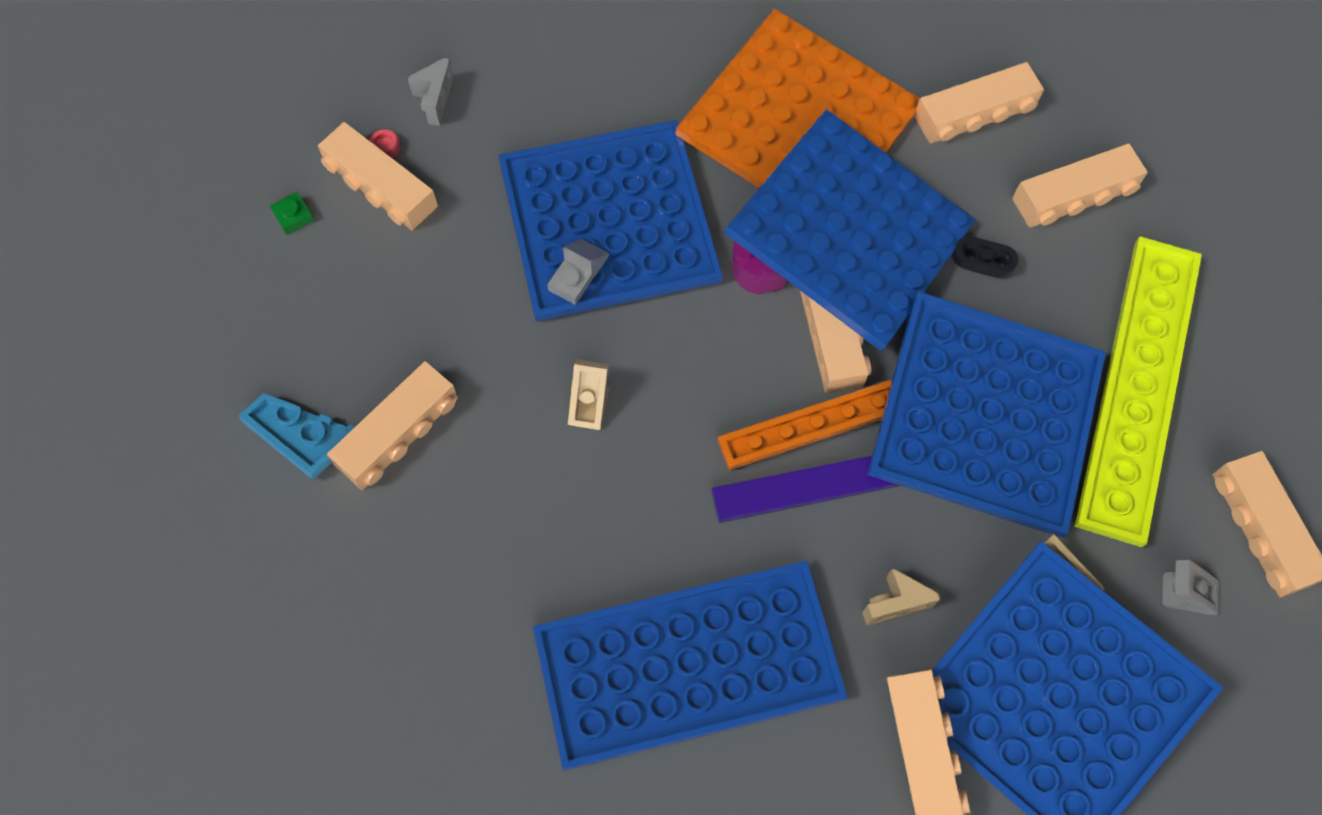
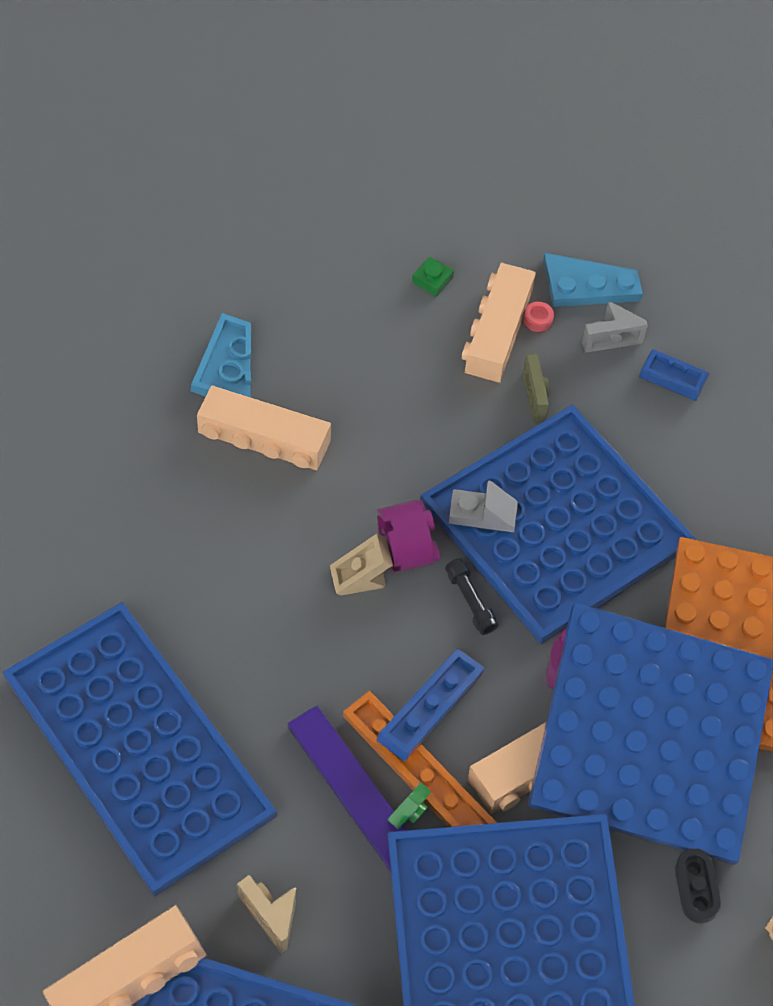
camera: 65 degrees right, 10 degrees down
(367, 90) = (588, 282): none -> dark azure wing
(465, 177) = (536, 388): none -> olive plate
(503, 65) = (674, 374): none -> blue plate
(577, 337) = (408, 535): none -> magenta brick
(681, 316) = (483, 618): none -> black bar
(755, 390) = (430, 704): none -> blue plate
(844, 445) = (411, 807): none -> green plate

